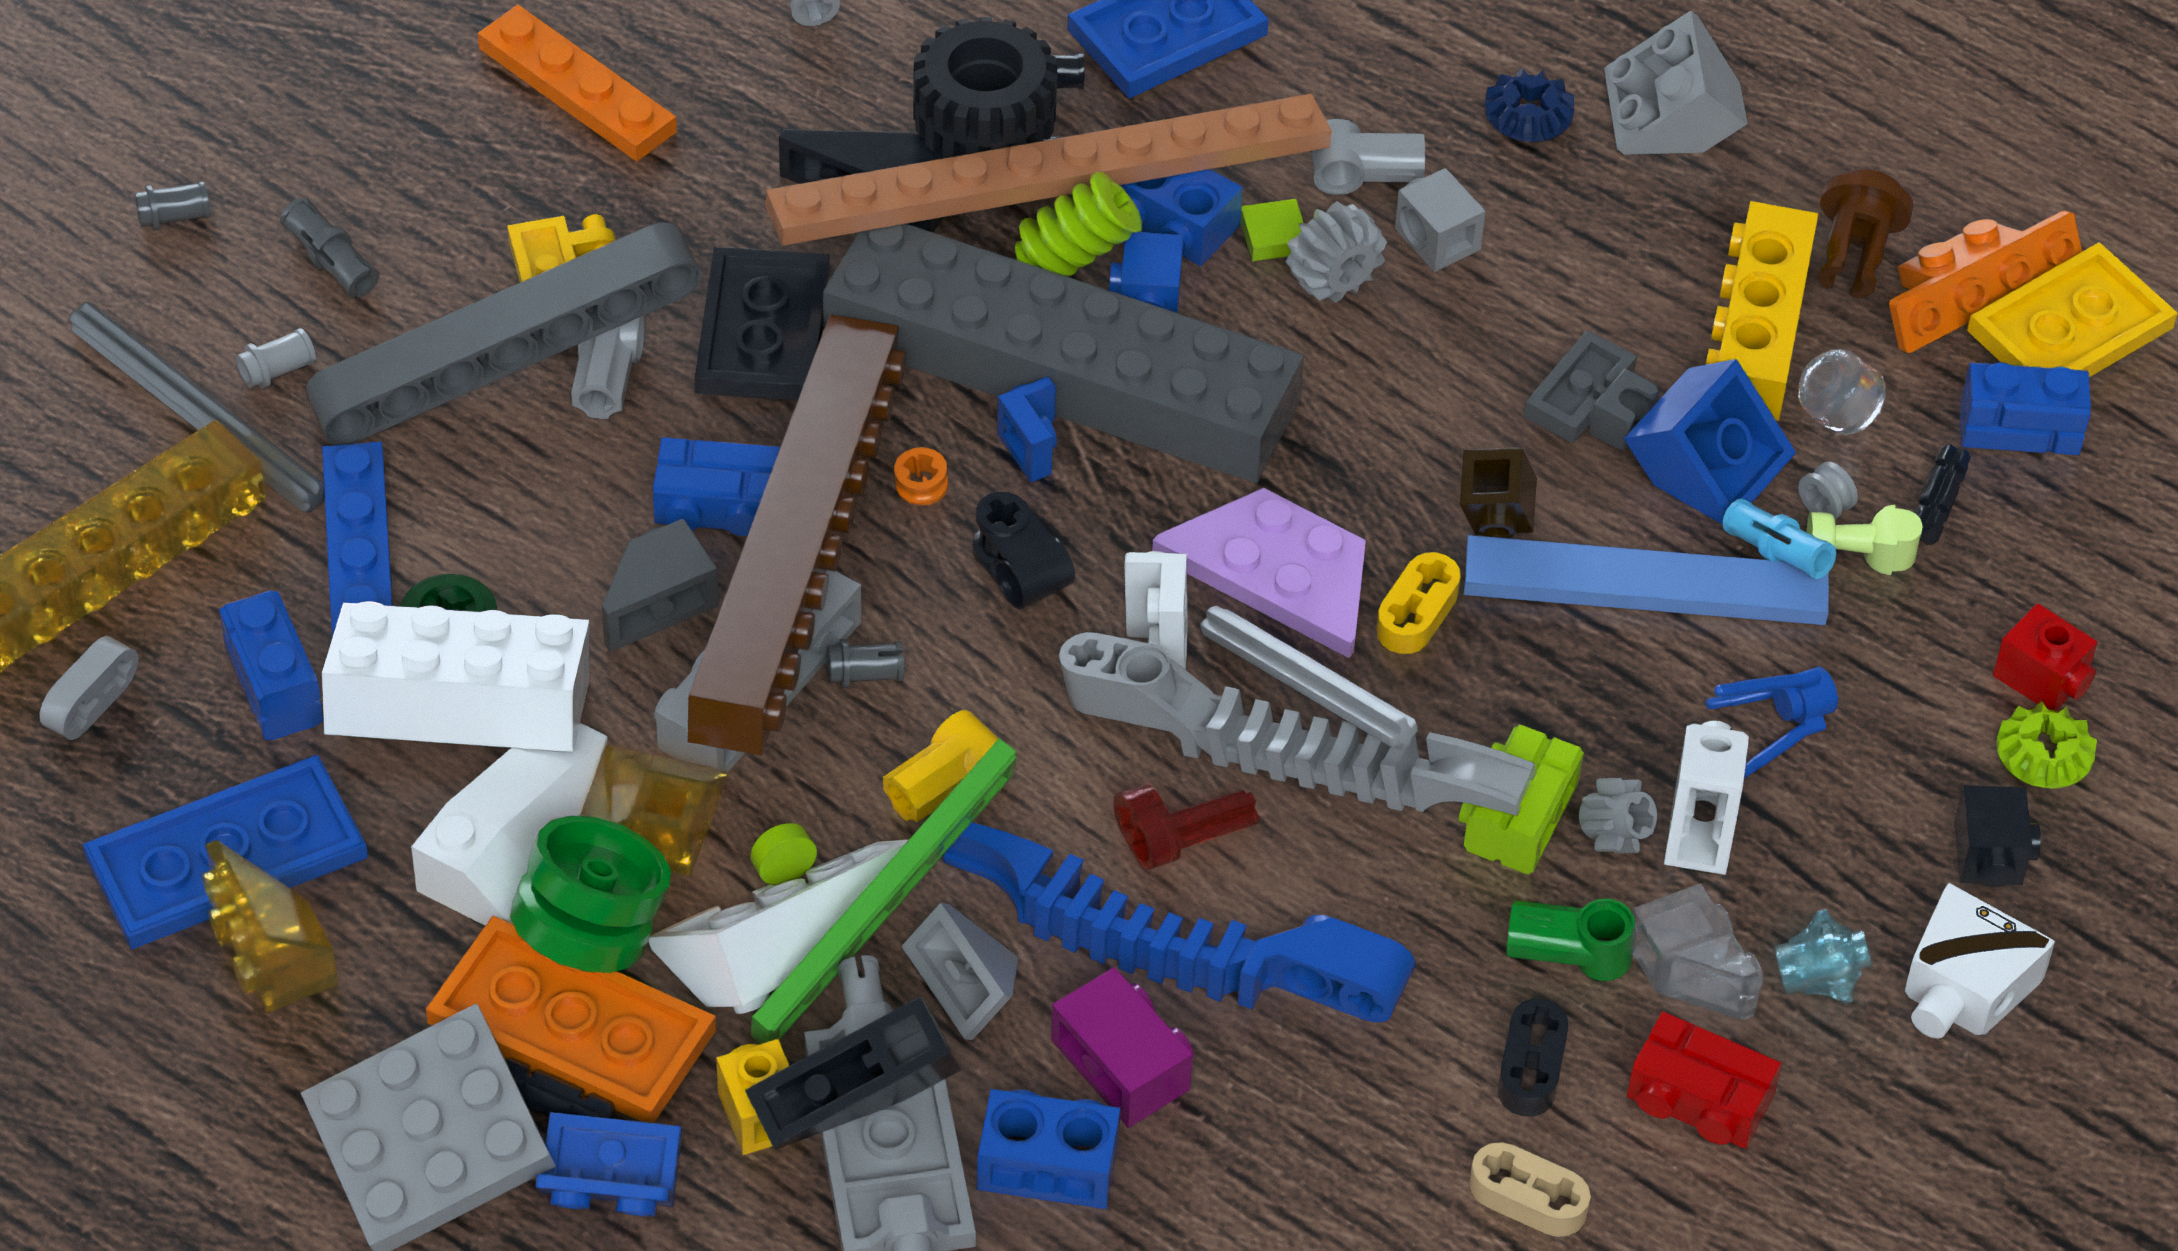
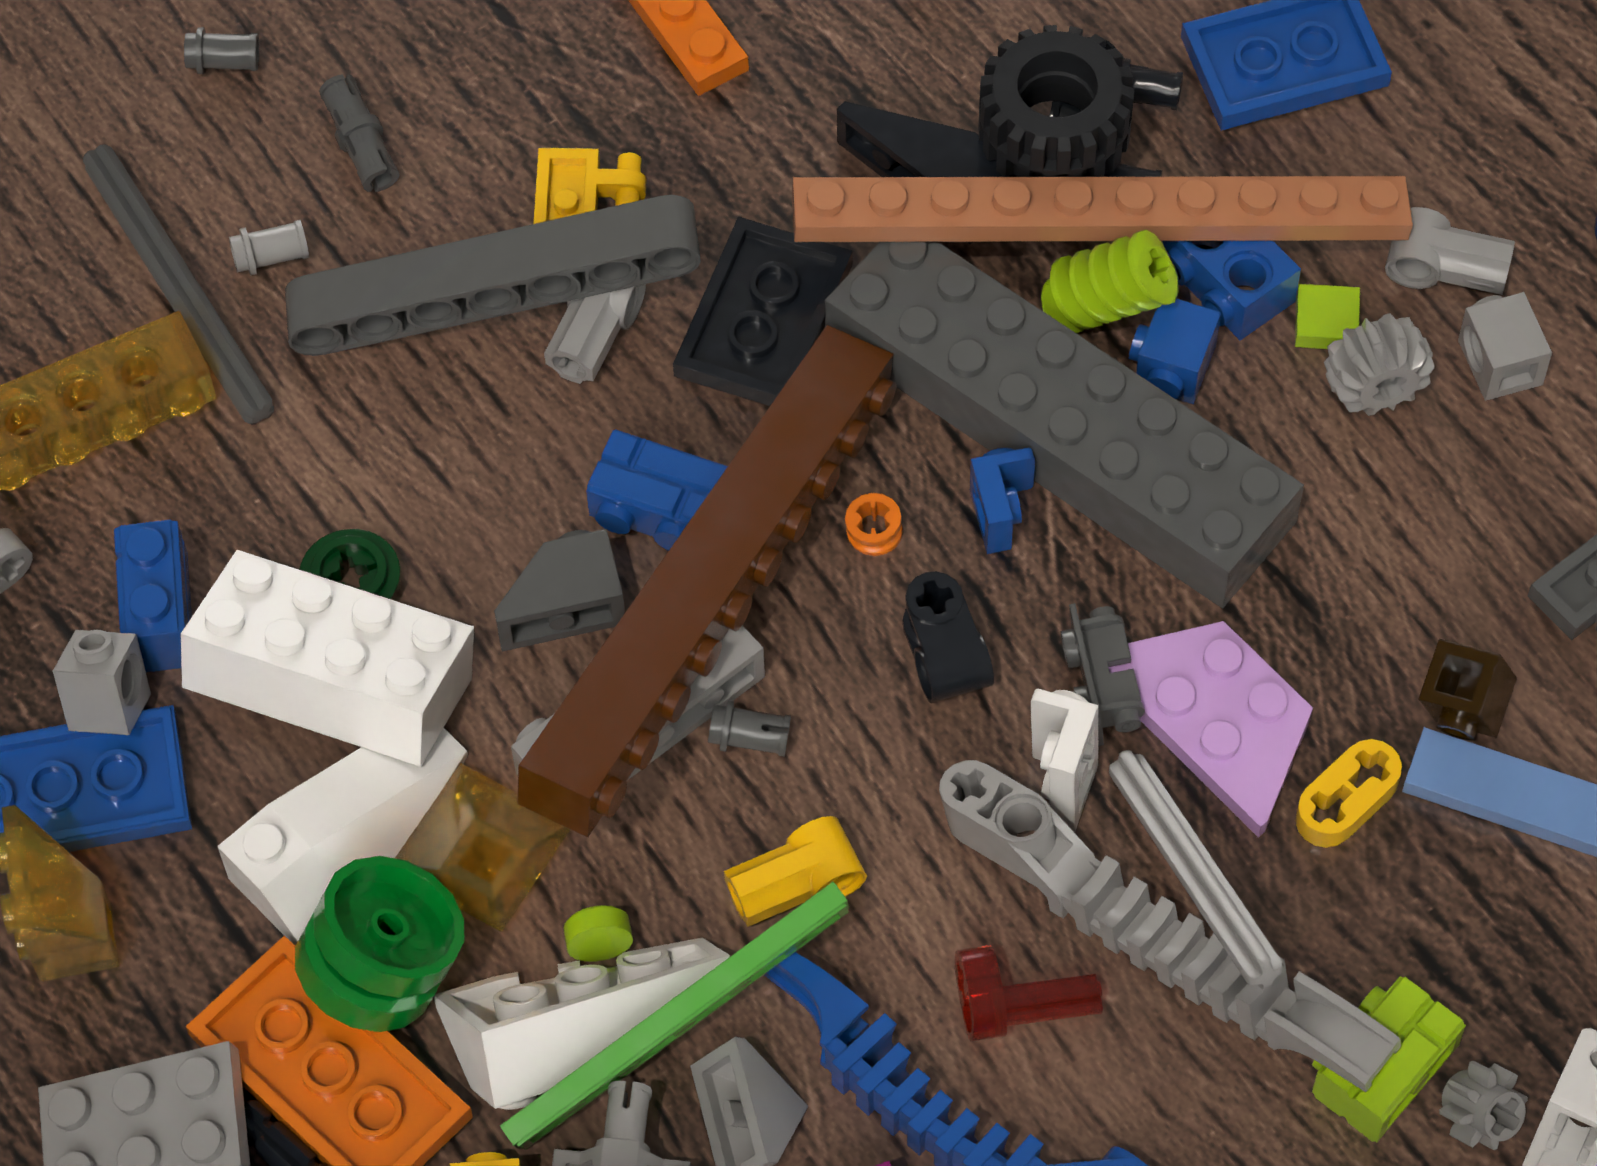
camera: 20 degrees right, 10 degrees up
(249, 740) = (102, 682): none -> light grey brick
(356, 526) = (291, 460): blue plate -> none
(1160, 527) = (1094, 647): none -> dark grey hinge

